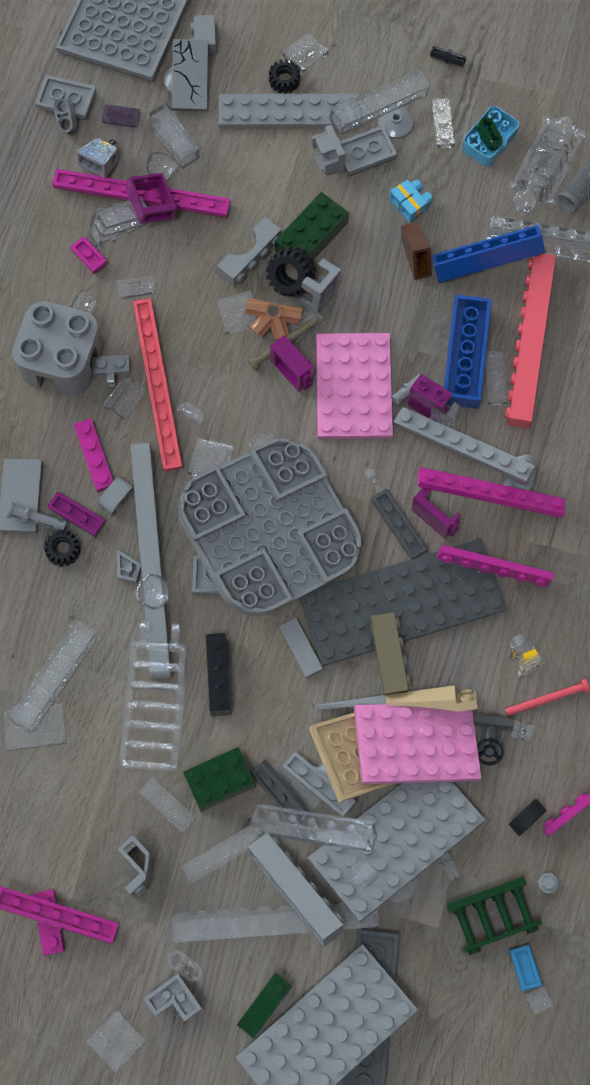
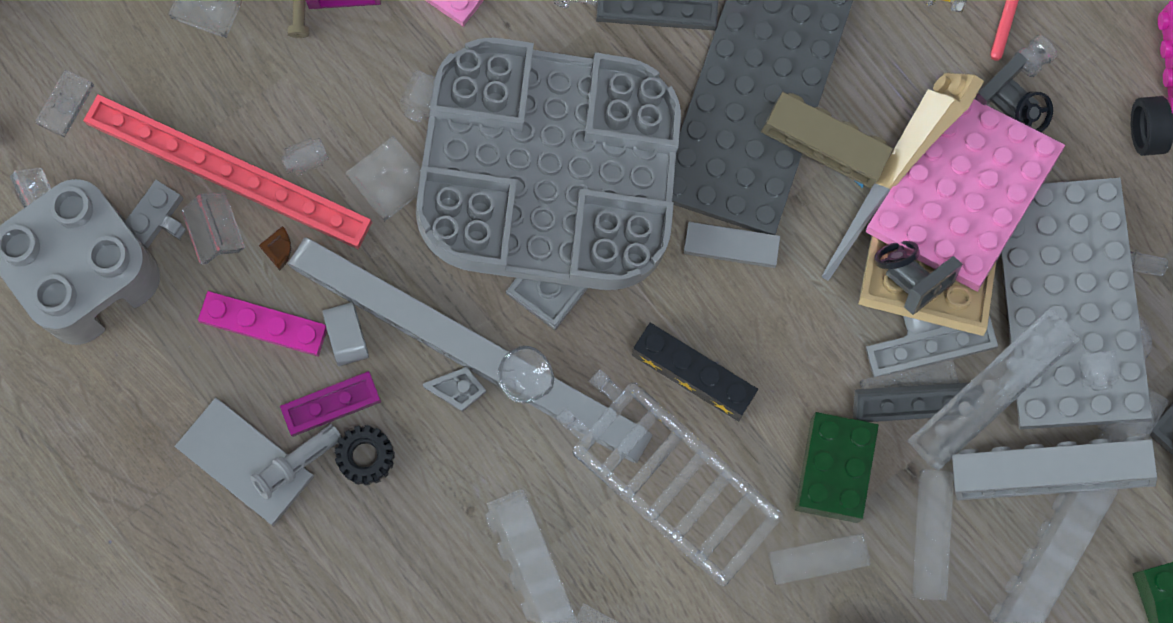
camera: 55 degrees left, 5 degrees up
(137, 434) = (277, 248): none -> reddish brown tile
(342, 748) = (914, 278): none -> dark grey piece

